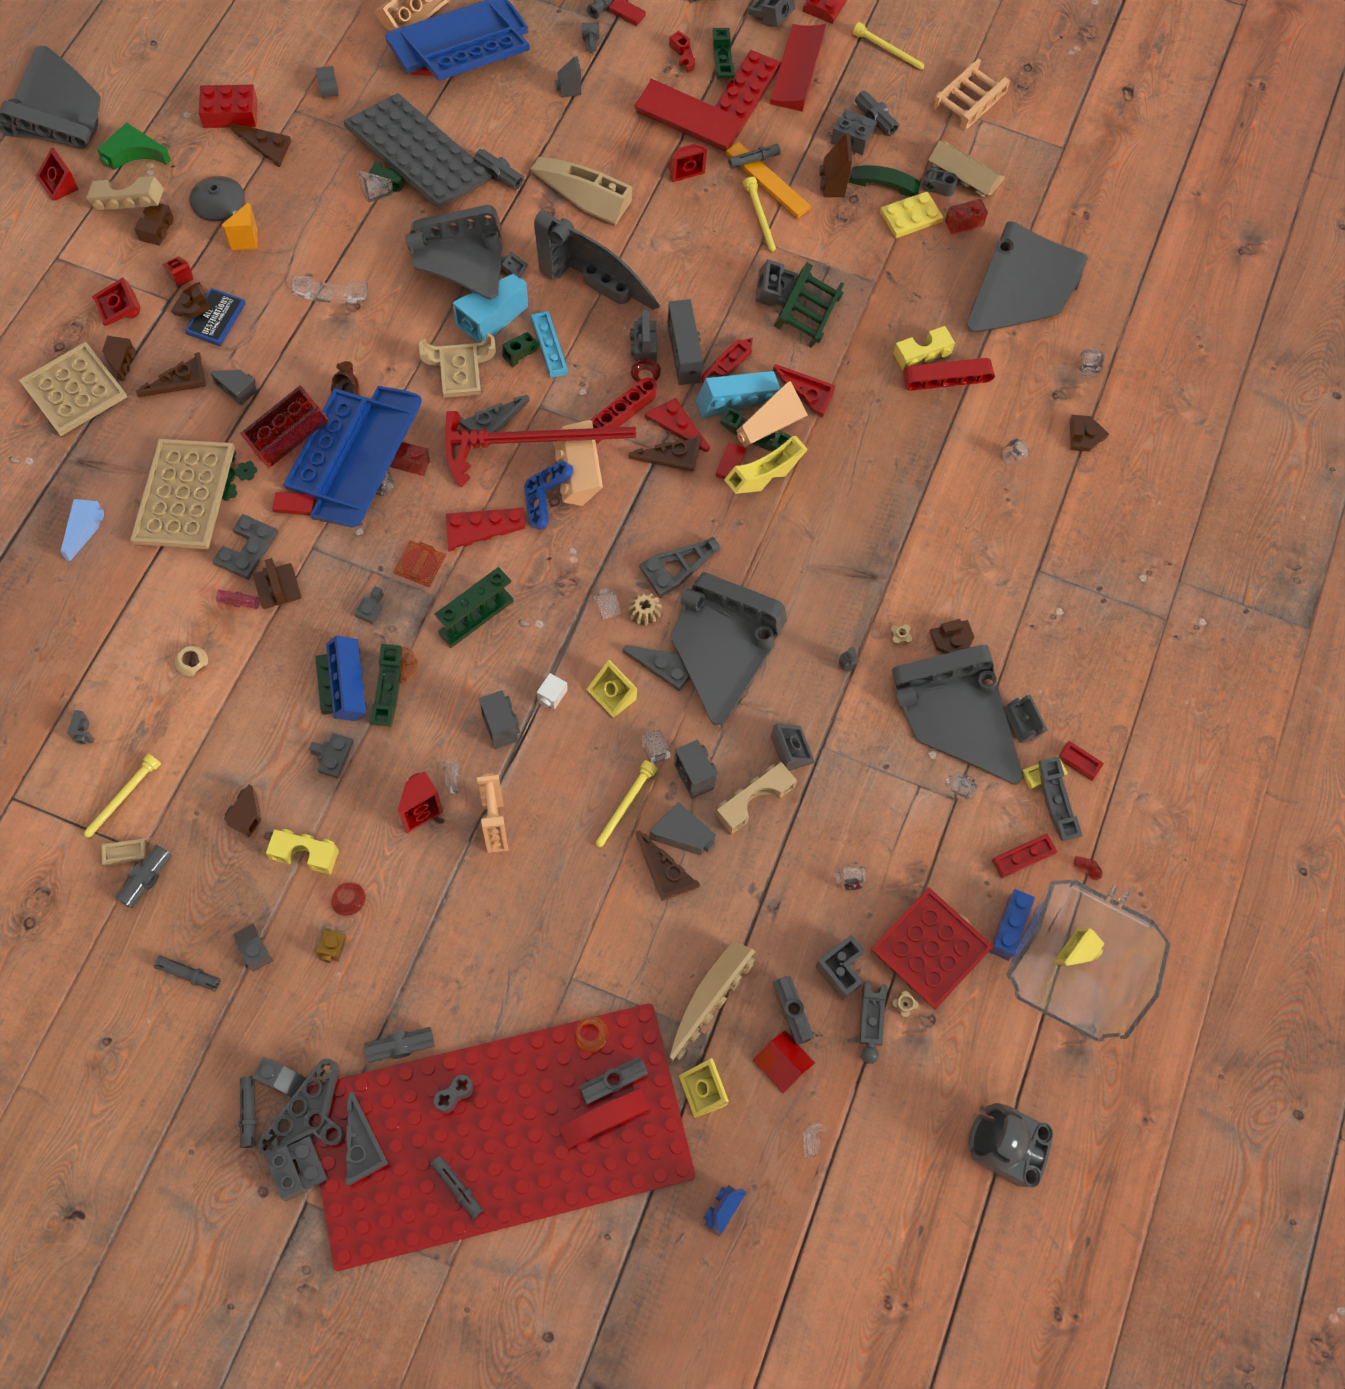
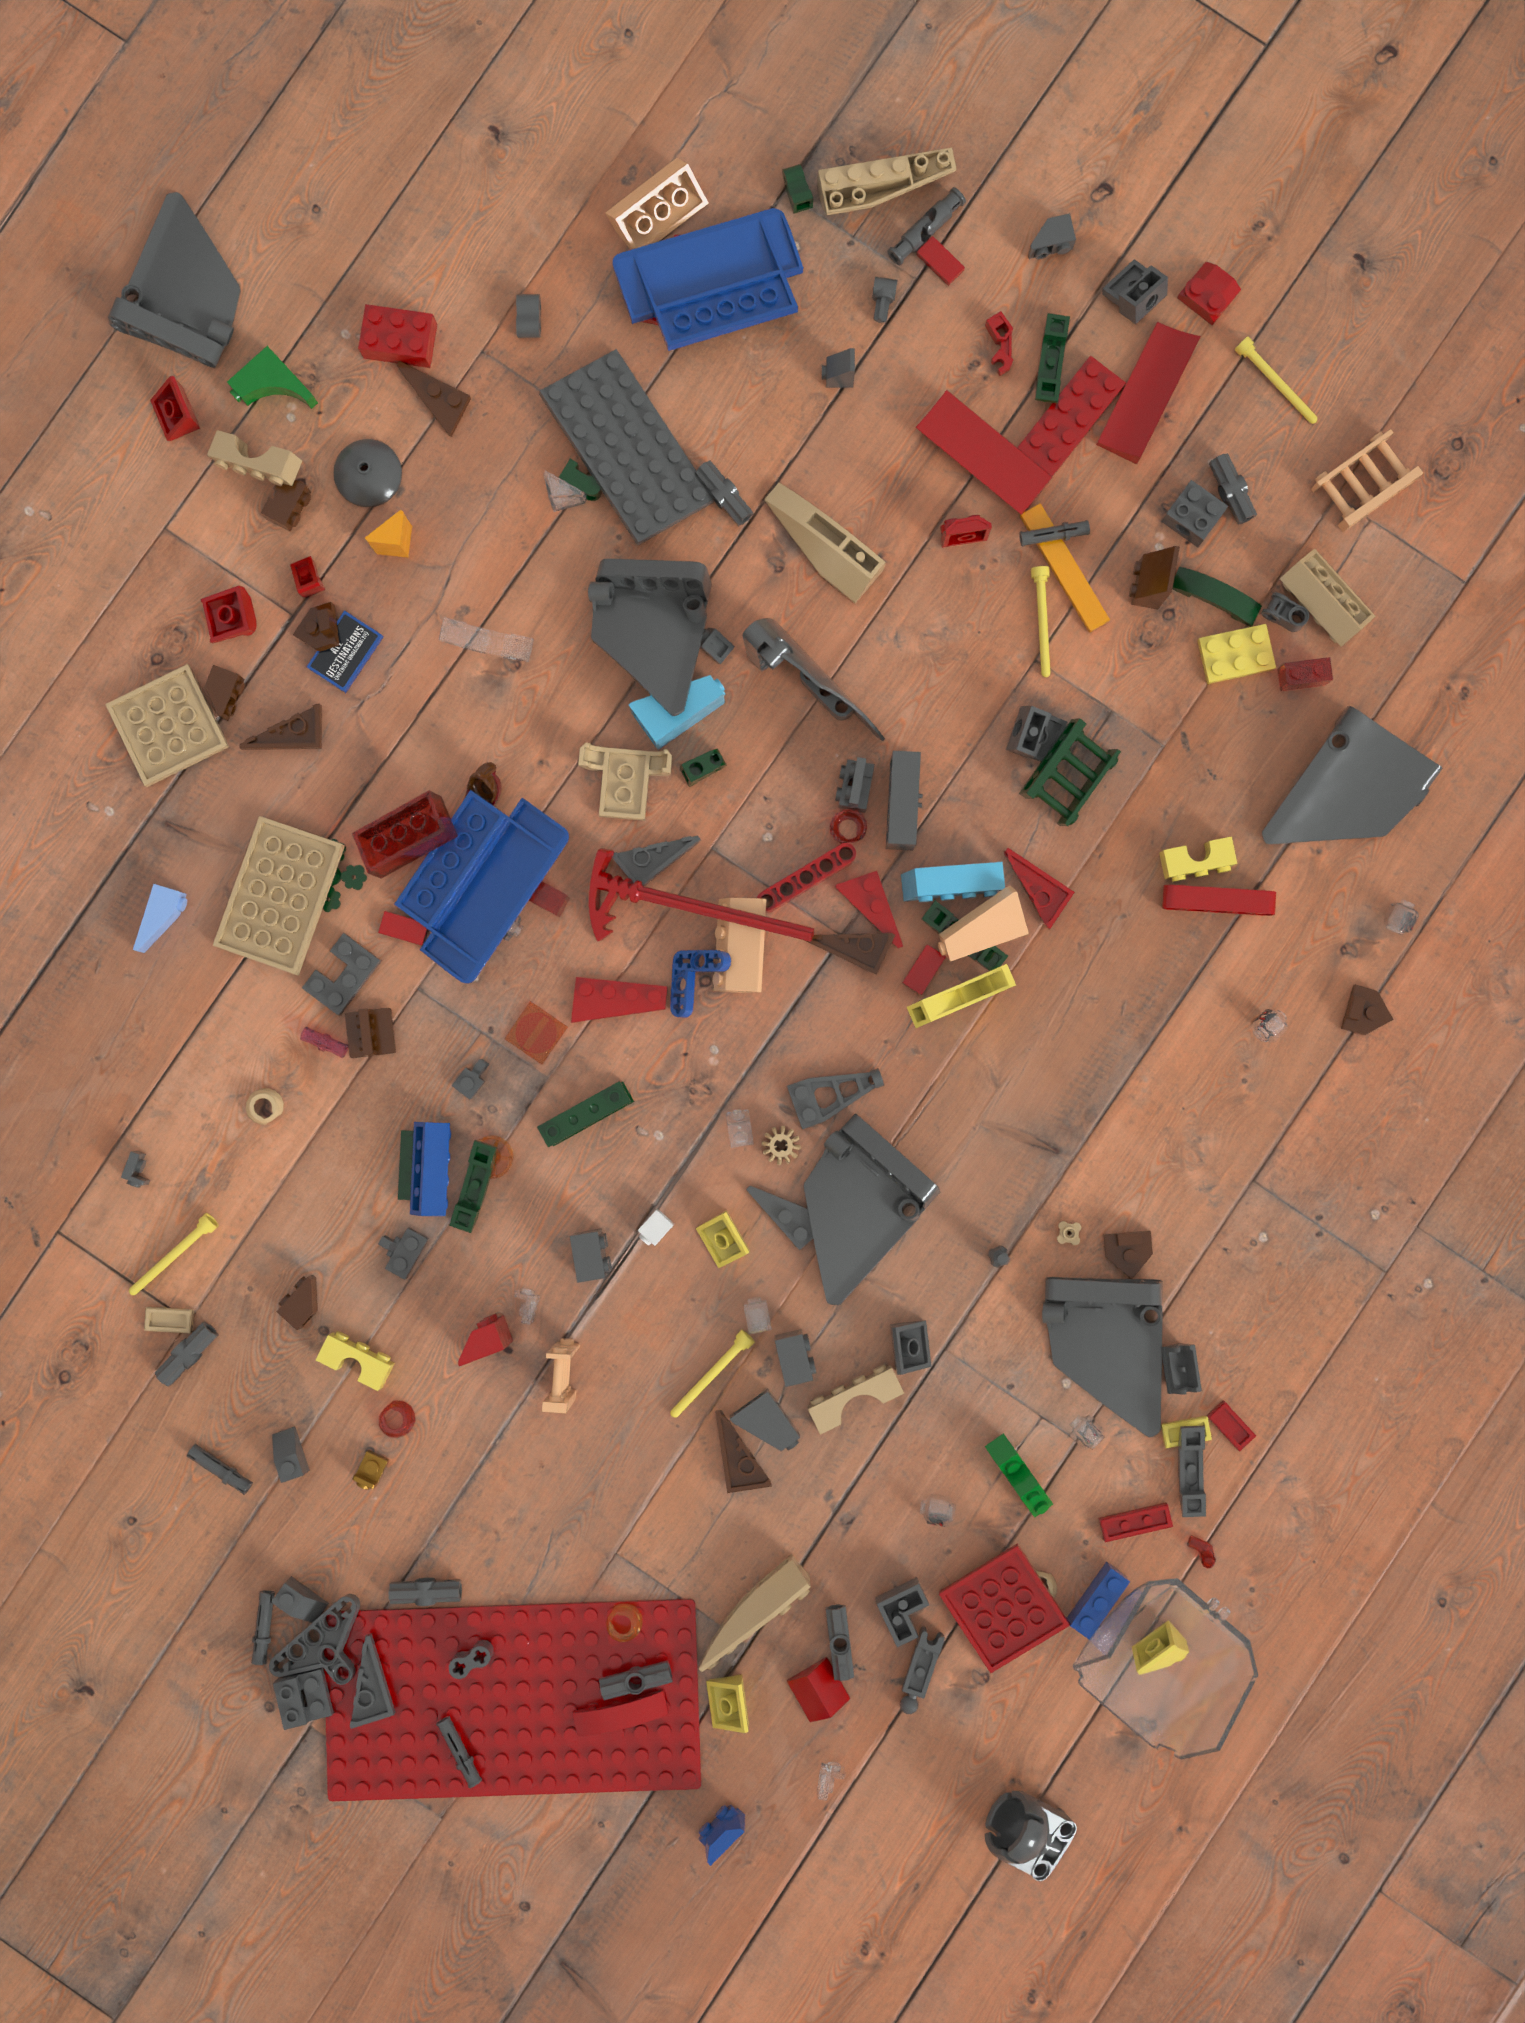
camera: 25 degrees right, 20 degrees up
(235, 384) = (357, 756): dark grey slope -> none
(549, 344) = (739, 764): medium azure tile -> none
(730, 359) = (951, 831): red plate -> none
(911, 1004) = (967, 1660): tan plate -> none
(917, 833) = (1019, 1475): none -> green arch

